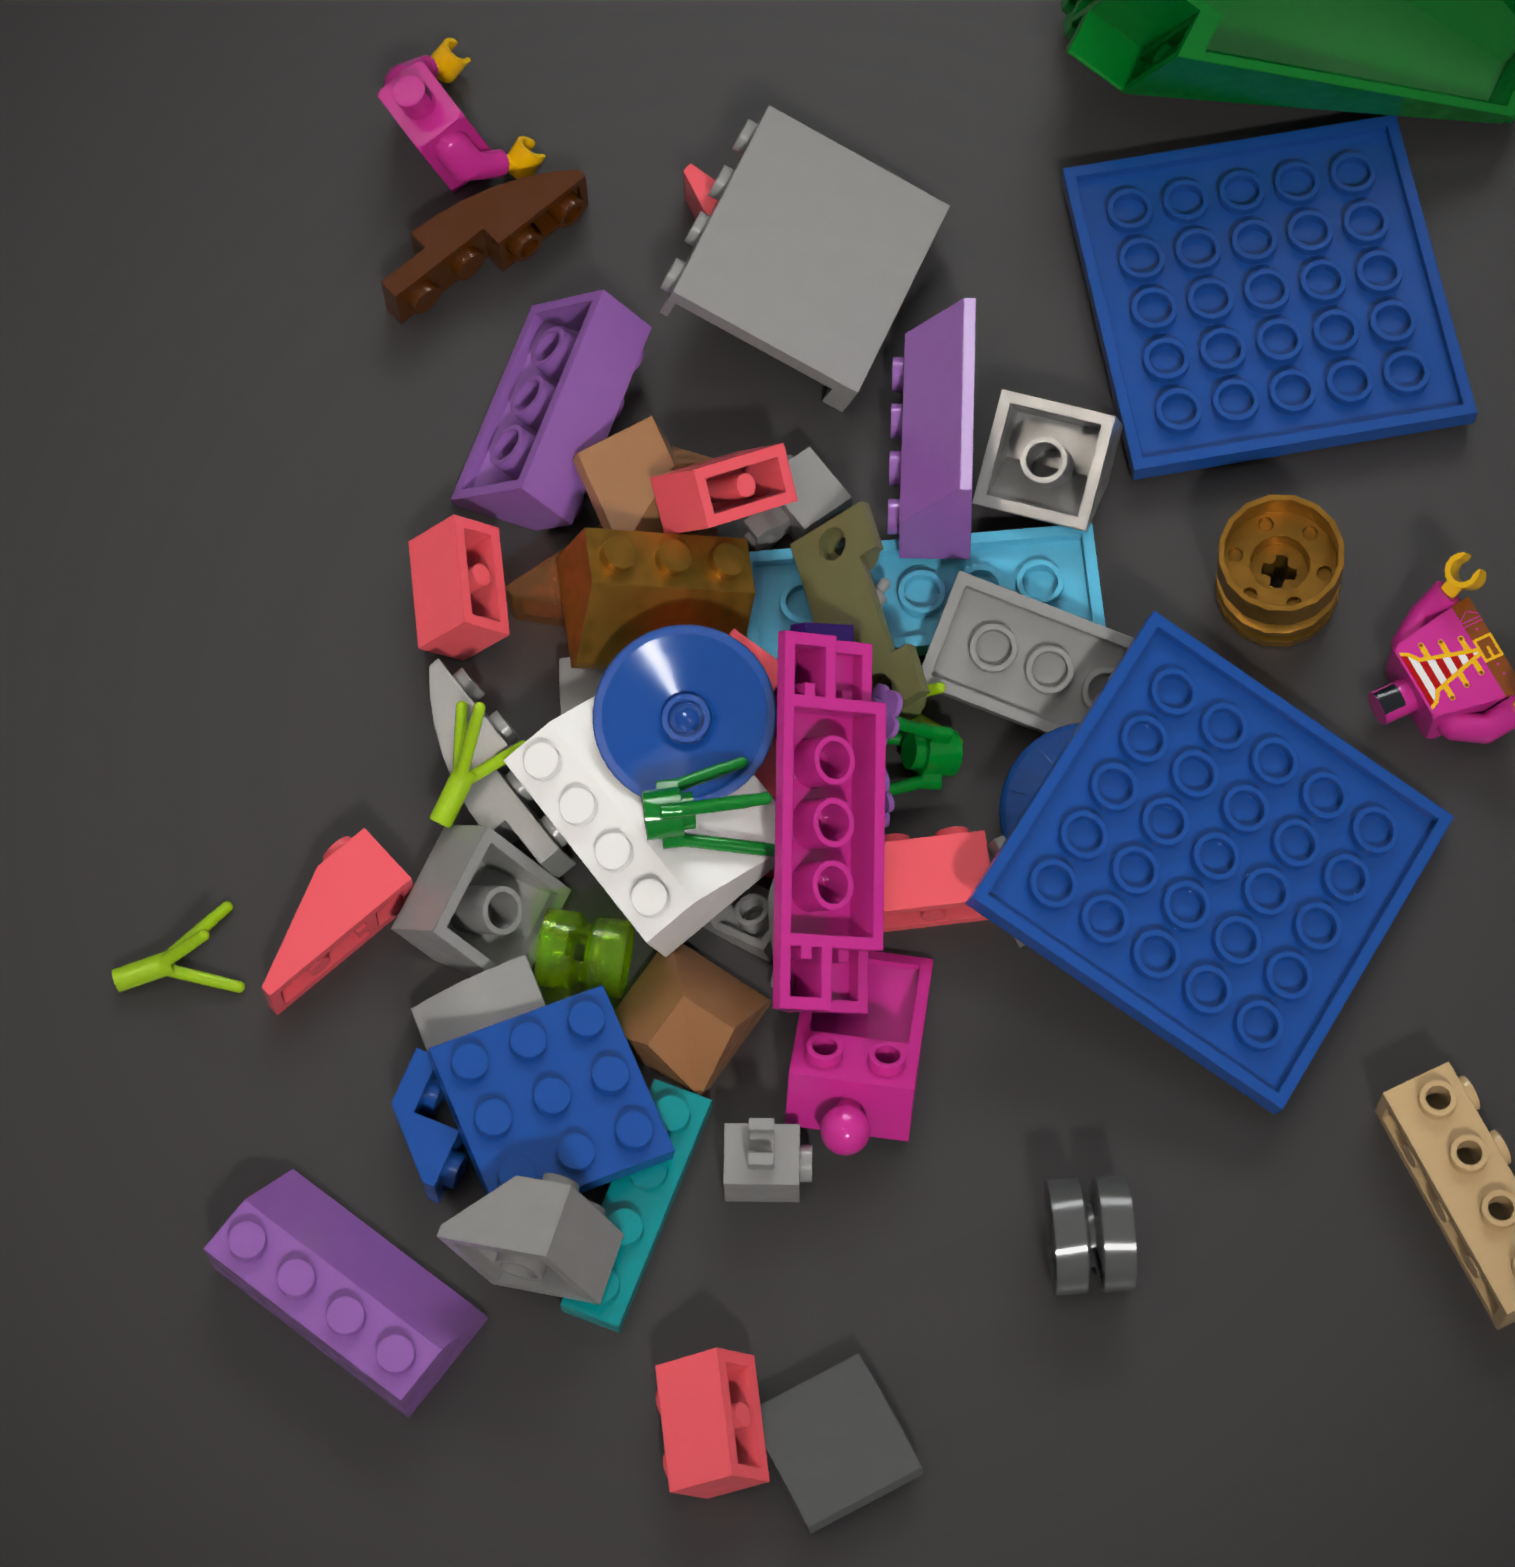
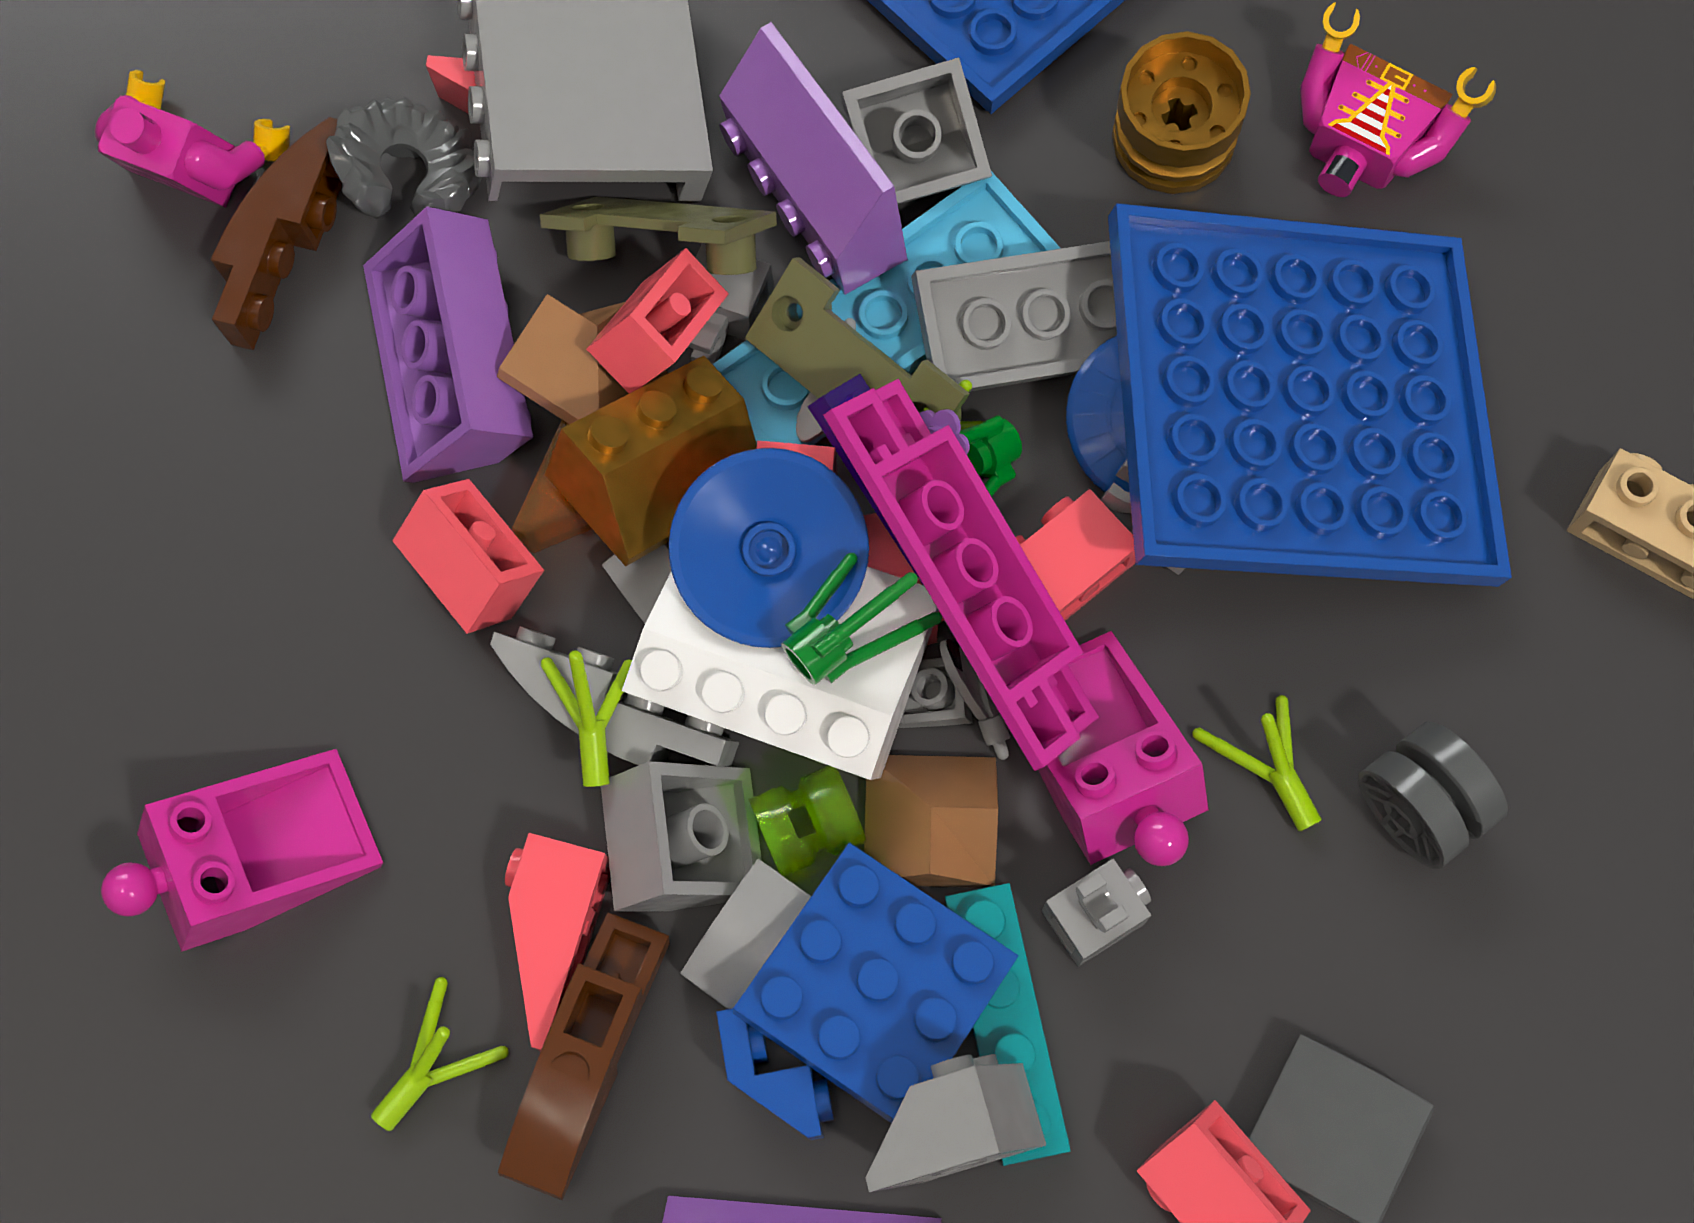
camera: 30 degrees left, 5 degrees up
(167, 713) = (262, 838): none -> dark pink slope
(294, 1017) = (582, 1056): none -> reddish brown slope
(633, 213) = (402, 132): none -> dark grey piece
(823, 442) = (724, 230): none -> olive brick
(991, 1149) = (1284, 777): none -> lime plant

